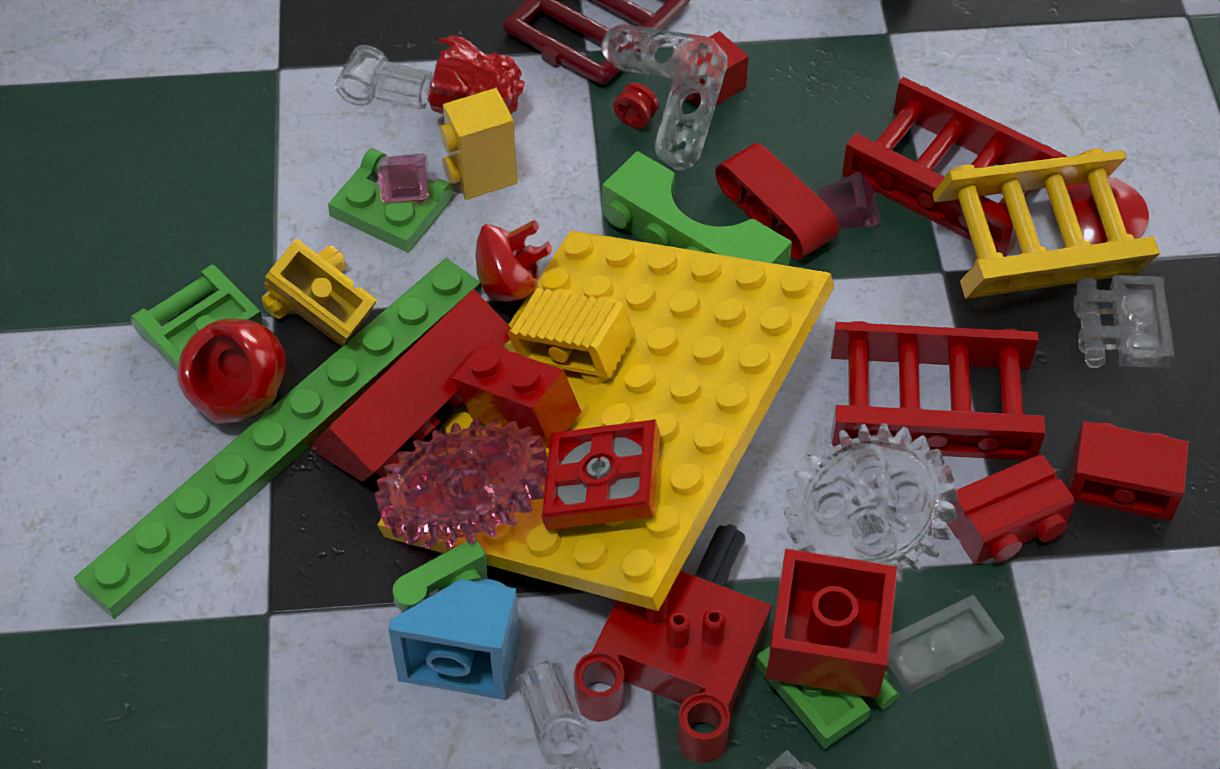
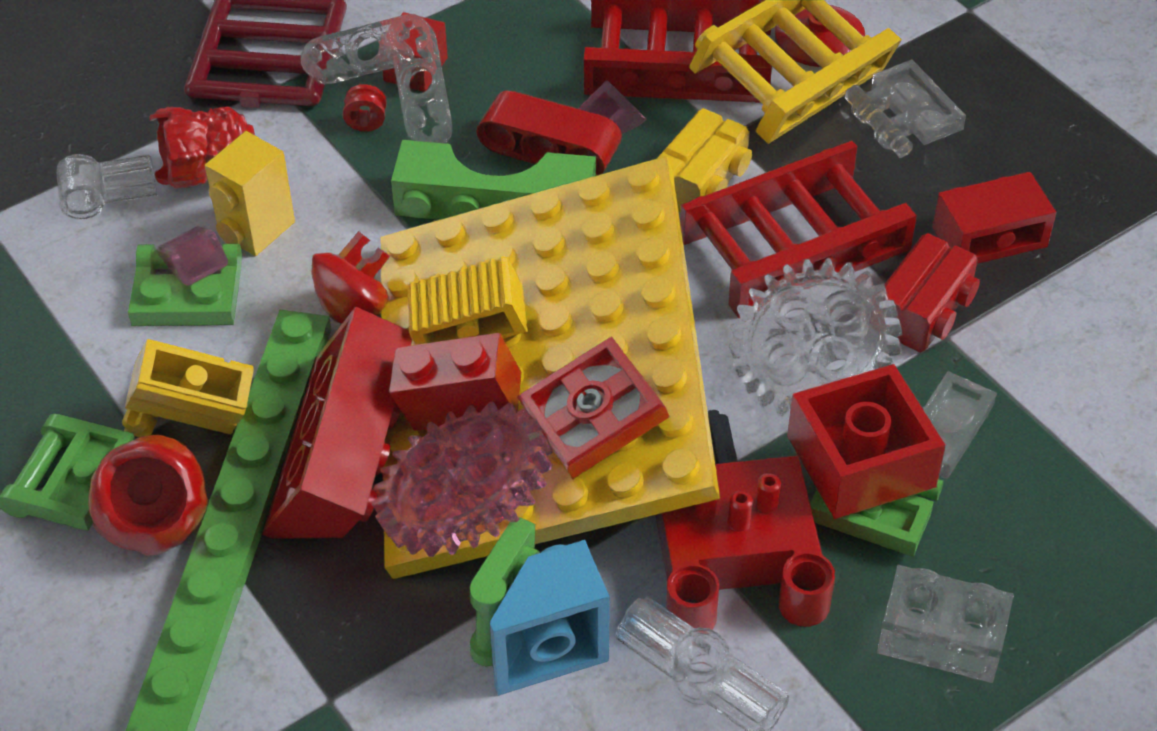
camera: 30 degrees left, 5 degrees down
(892, 286) = (707, 155): none -> yellow brick

